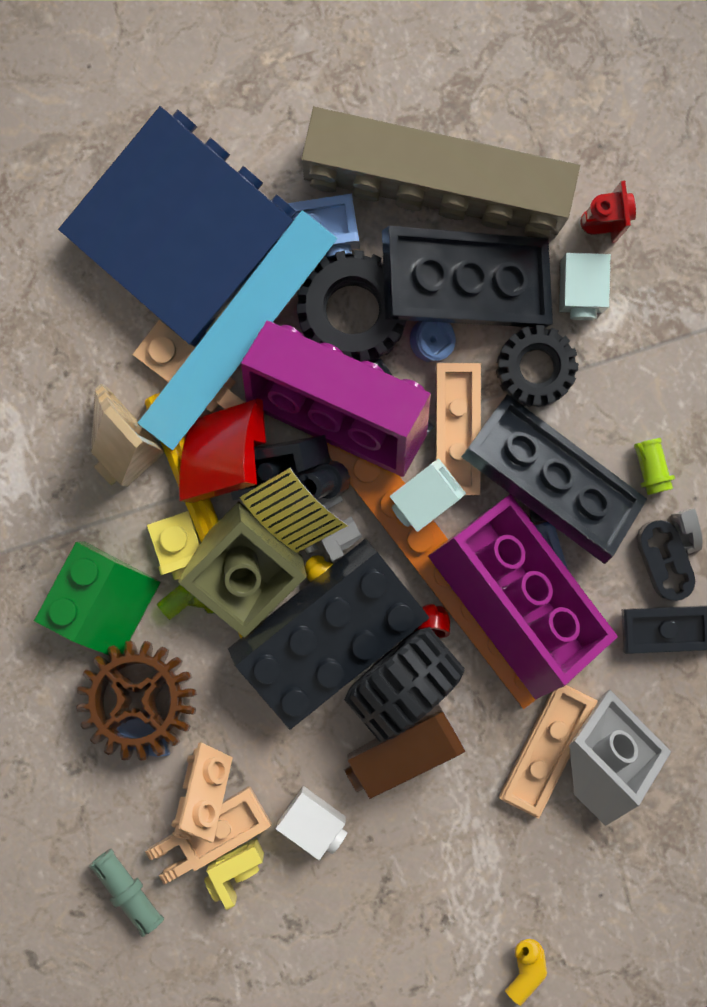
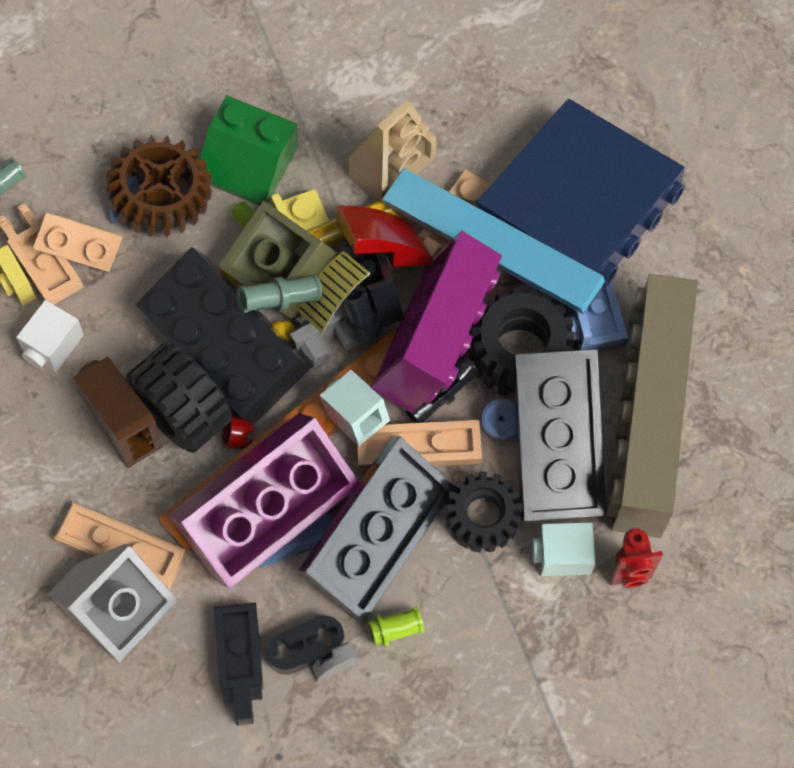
camera: 85 degrees right, 20 degrees down
(299, 570) = (279, 293): none -> sand green pin

